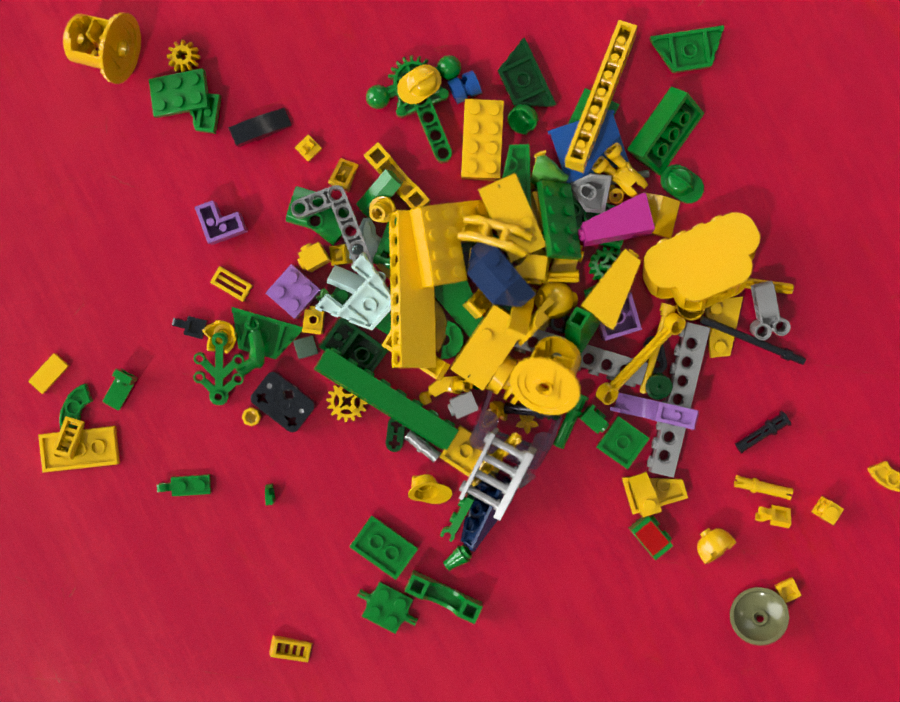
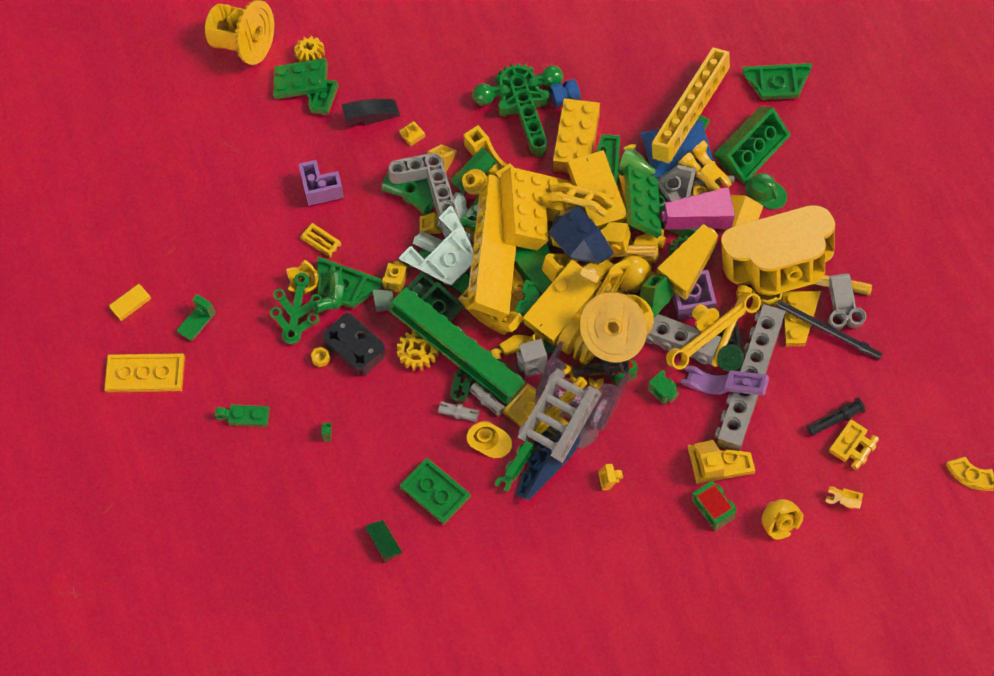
camera: 10 degrees right, 25 degrees down
(62, 435) = (134, 369): yellow slope -> none
(75, 403) = (146, 335): green tile -> none
(193, 326) = (276, 272): black plate -> none
(283, 640) = (311, 572): yellow slope -> none
(293, 291) = (379, 247): medium lavender brick -> none
(313, 257) = (403, 217): yellow brick -> none
(340, 600) = (383, 540): none -> dark green slope
(387, 607) = (431, 552): green plate -> none
(396, 461) = (458, 411): none -> light grey pin
(419, 84) = (522, 83): yellow piece -> none
(454, 600) = (476, 534): green arch -> none
(458, 557) = (510, 508): green cone -> none
(522, 118) = (616, 122): green hair -> none
(524, 79) = (622, 94): dark green wing -> none
(548, 517) = (609, 477): none -> yellow tile
(569, 421) = (642, 382): green pin -> none
(622, 442) = (691, 413): green plate -> none
(630, 346) = (704, 316): none -> yellow piece
(755, 485) = (826, 466): yellow pin -> none
(756, 603) = (824, 592): olive dish -> none
(776, 456) = (849, 440): none -> yellow plate
(788, 590) = (857, 574): yellow plate -> none
(827, 510) = (901, 496): yellow brick -> none

